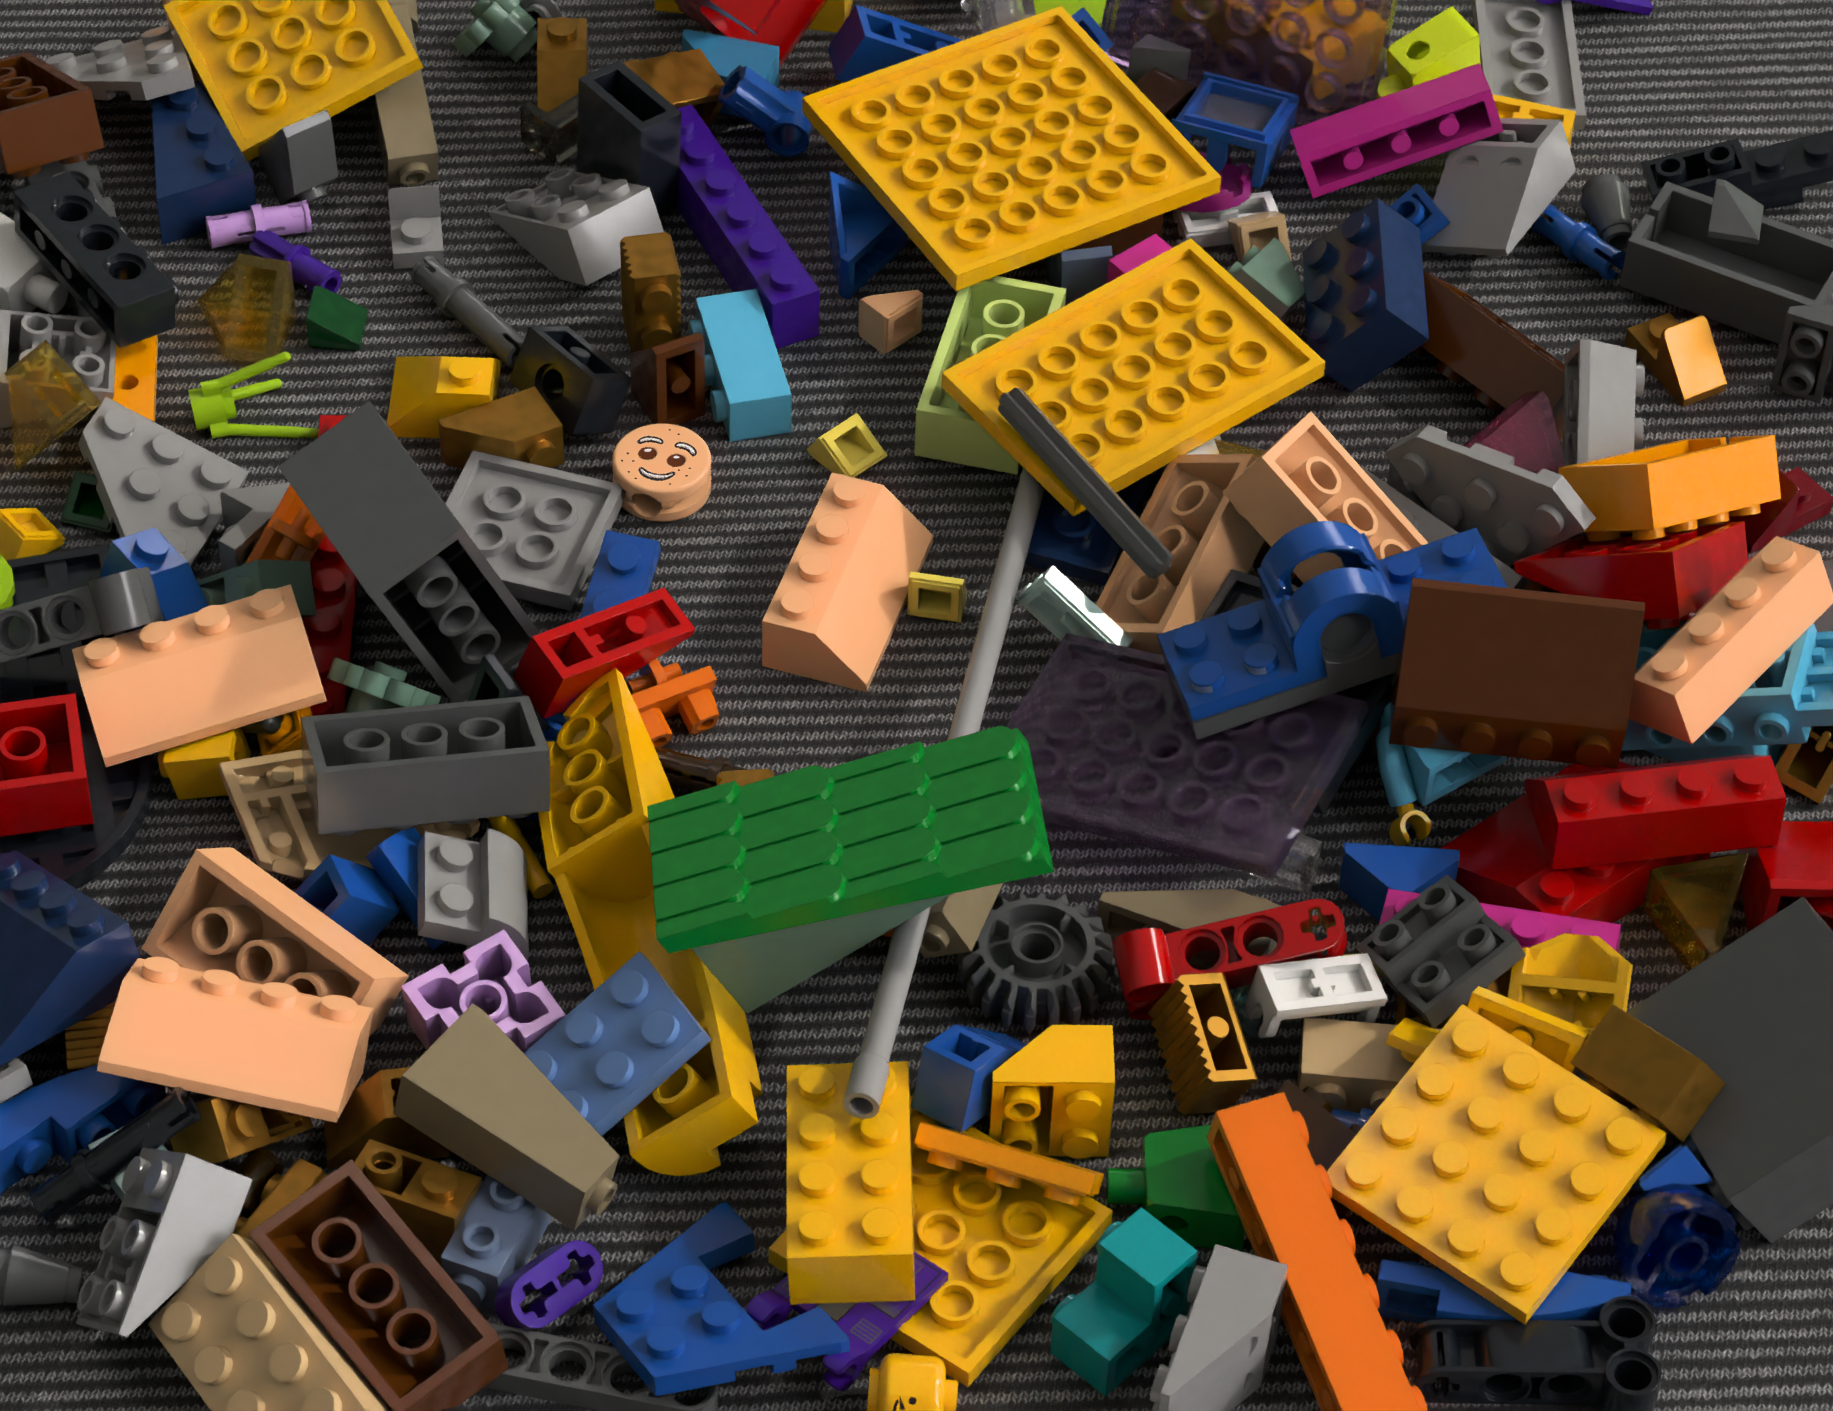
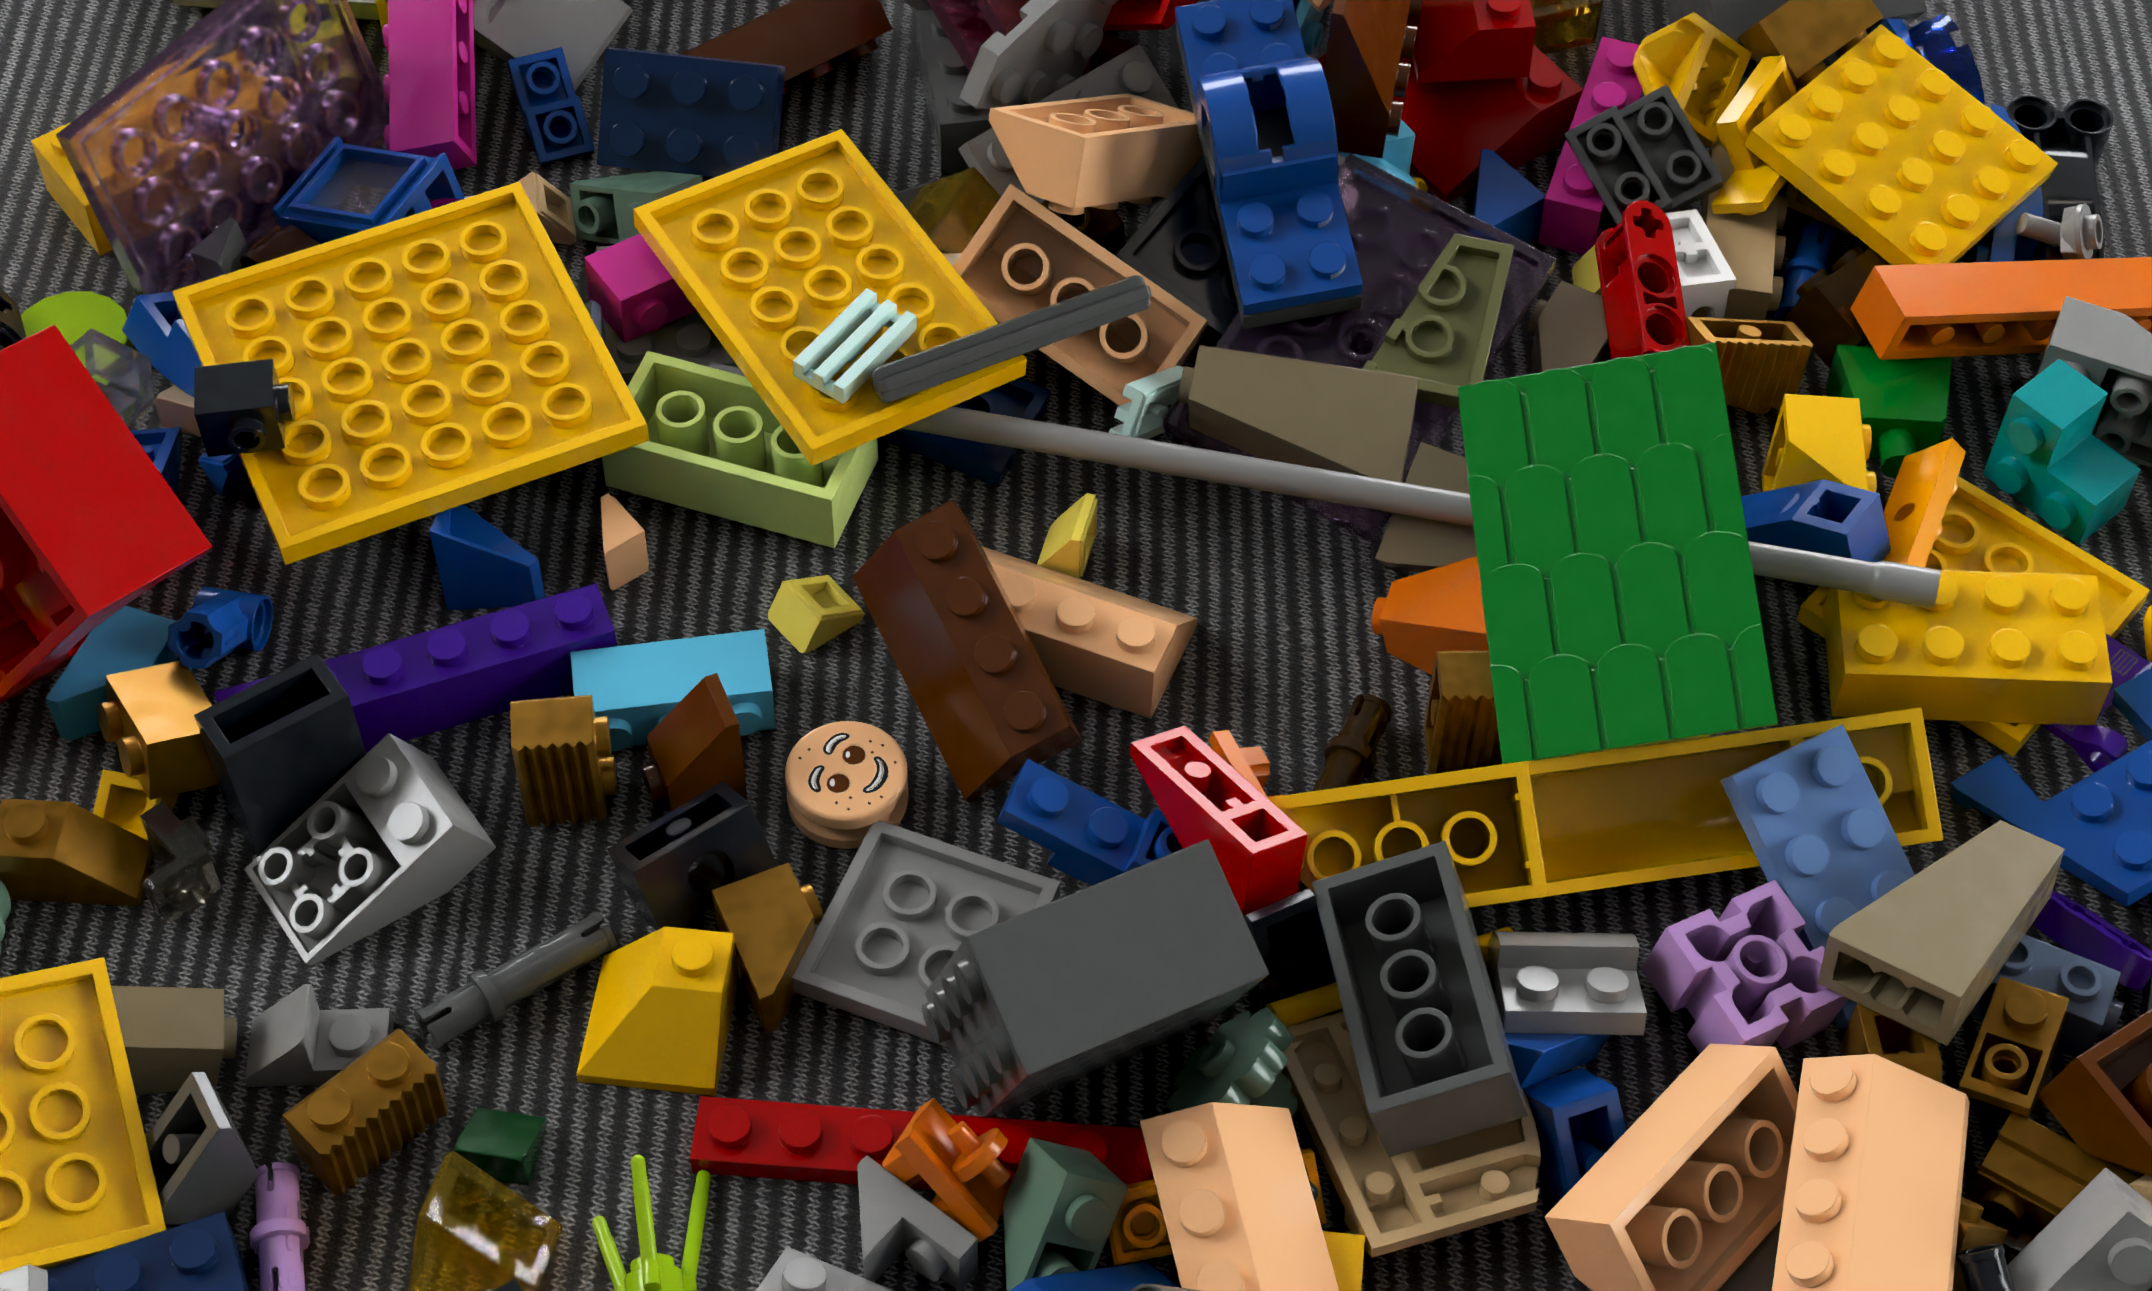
camera: 85 degrees left, 5 degrees up
(305, 269) = (374, 1191): dark purple axle -> none
(352, 243) = (366, 1112): none -> pearl gold brick
(770, 502) = (963, 651): none -> reddish brown slope
(920, 44) = (242, 407): none -> black brick
(1058, 377) = (846, 340): none -> light aqua tile
(1063, 701) = (1303, 411): none -> dark tan slope
(1166, 790) = (1450, 321): none -> olive wing
(1429, 1328) = (2076, 234): none -> light grey plate

